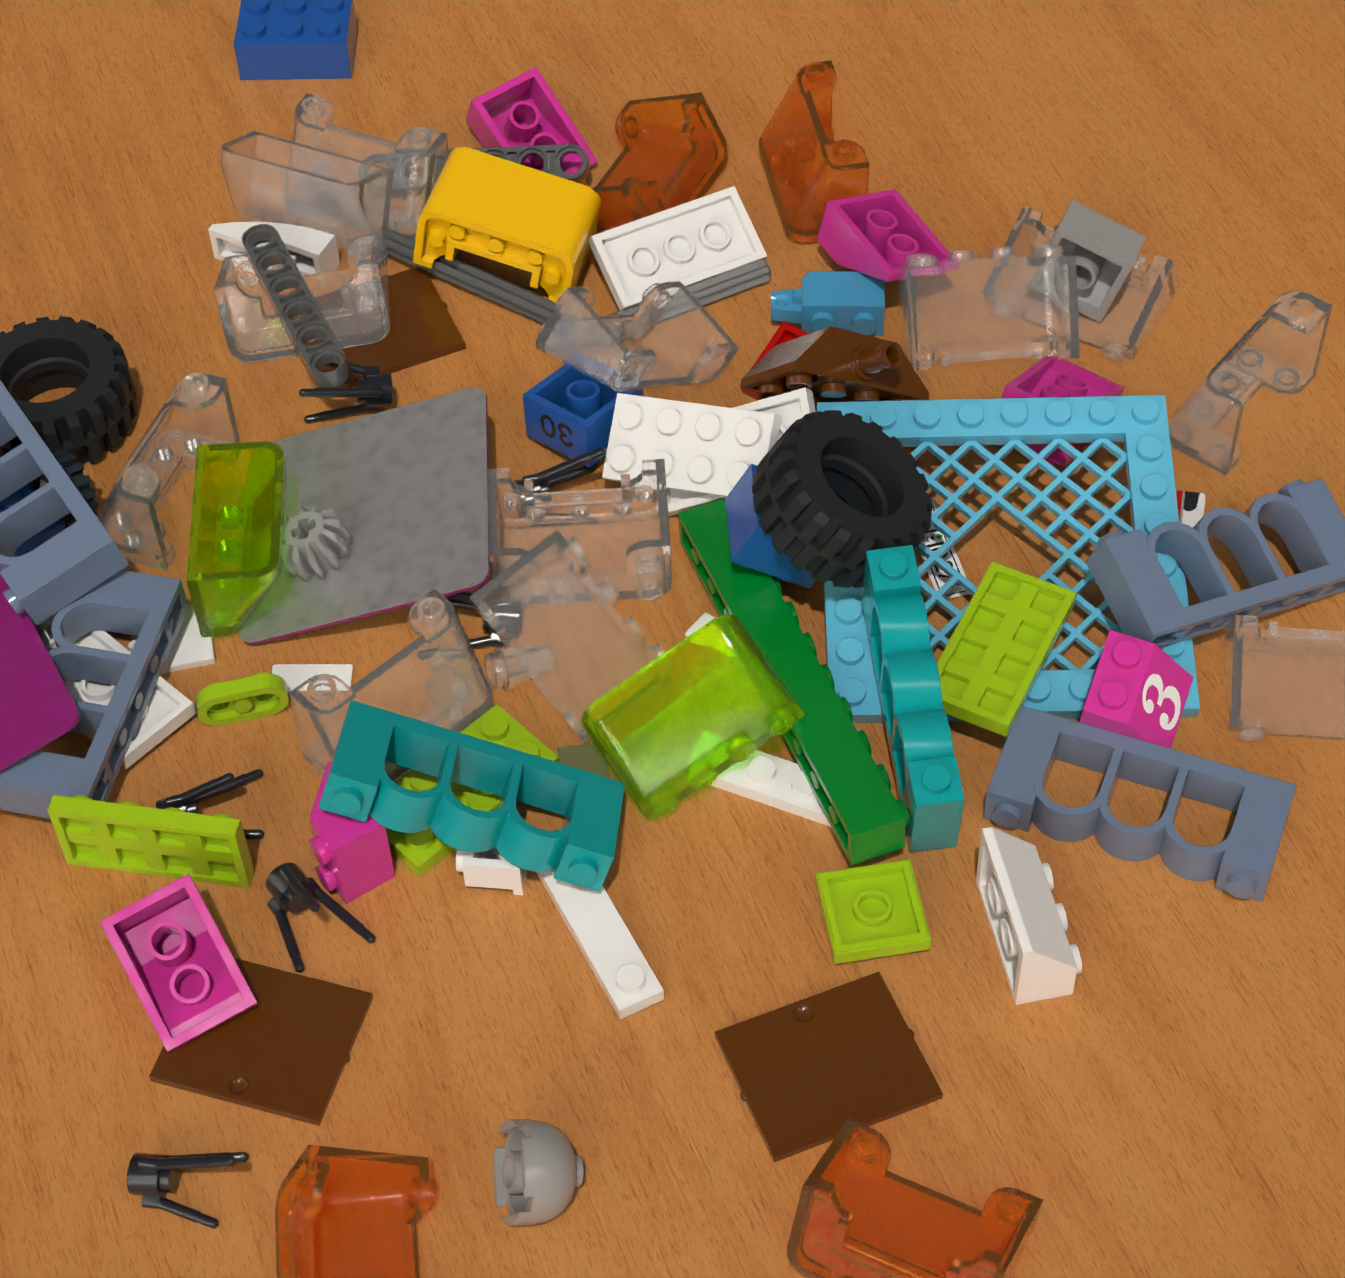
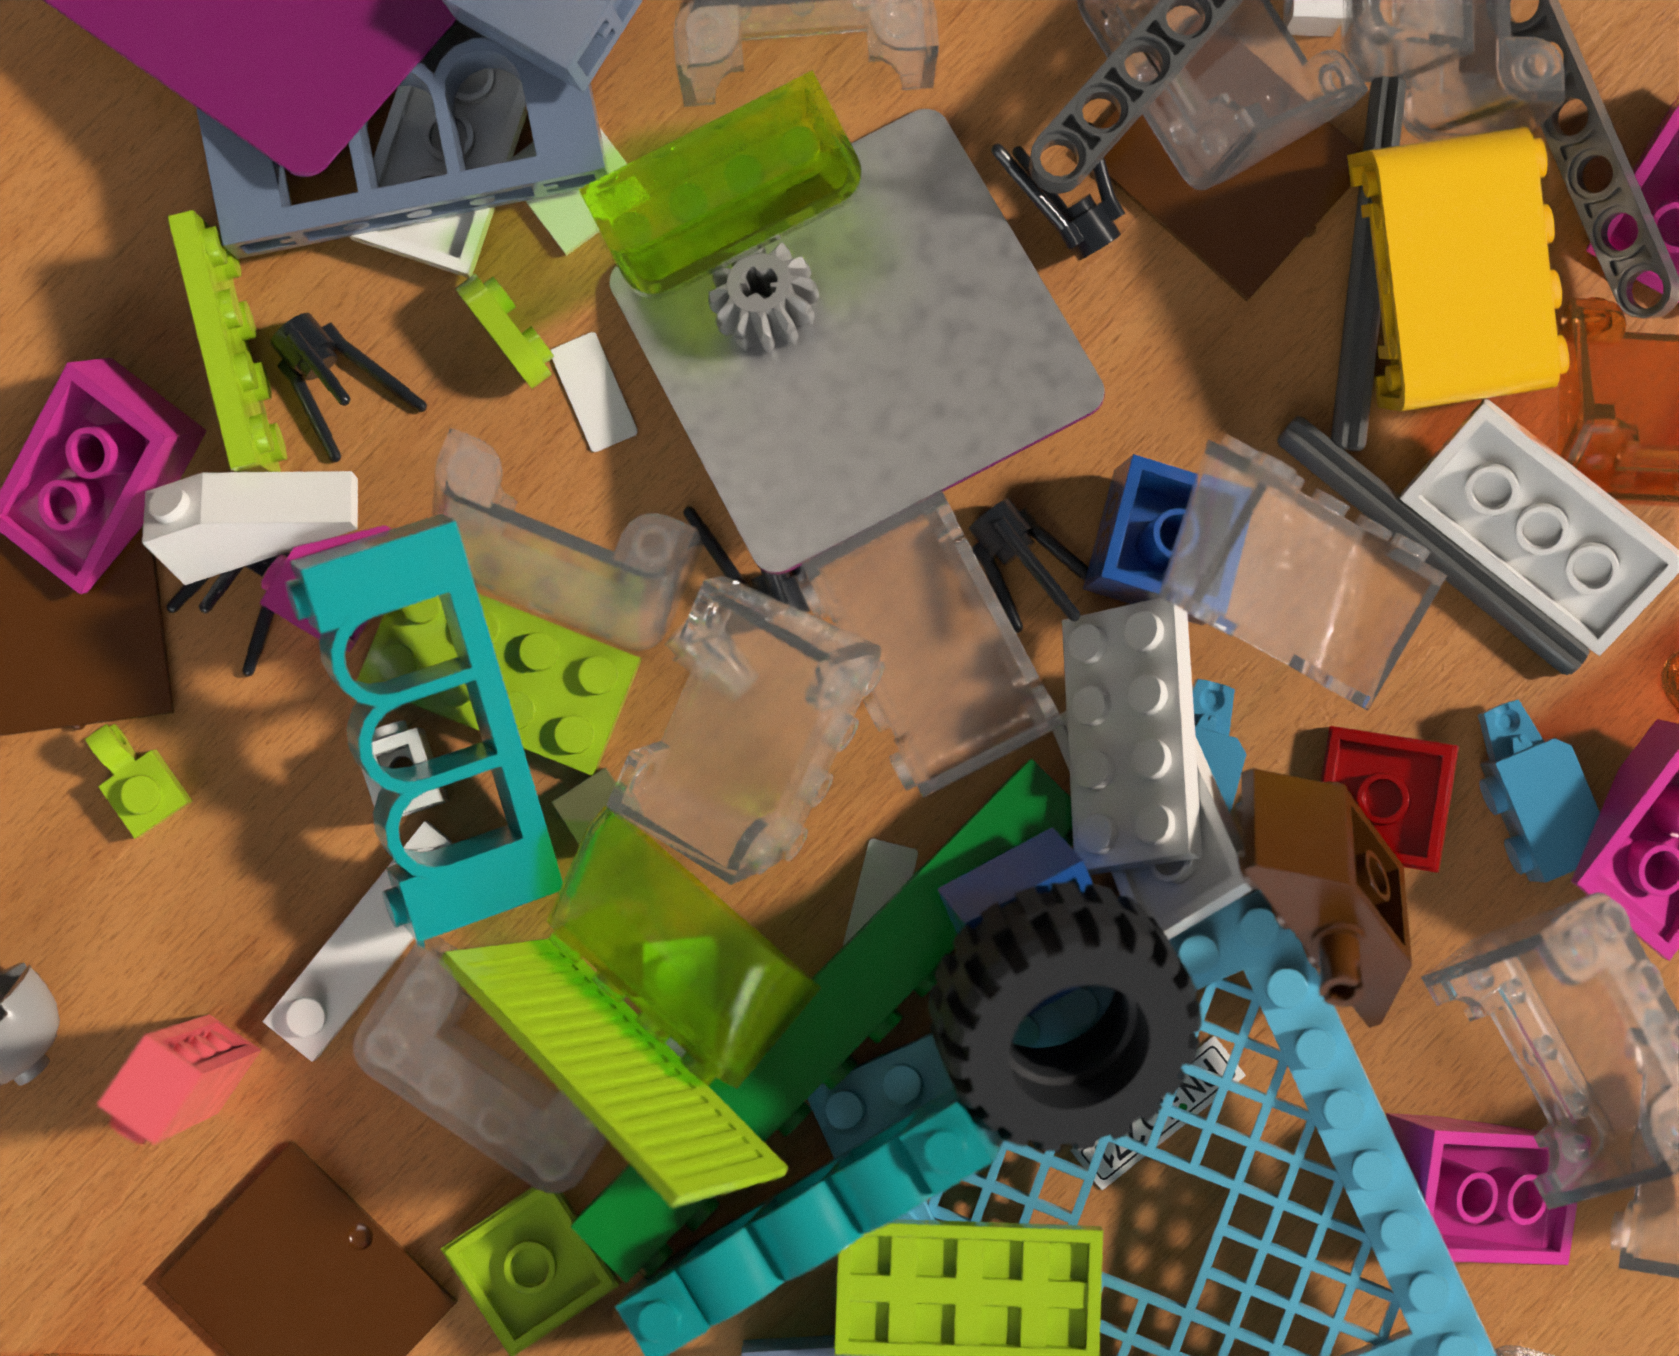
camera: 60 degrees right, 35 degrees up
(268, 862) = (241, 518): none -> white slope
(414, 1031) = (142, 788): none -> lime plate
(630, 1014) = (177, 1079): none -> coral brick
(729, 872) = (463, 1084): none -> clear windscreen
(752, 753) = (615, 1071): none -> lime window

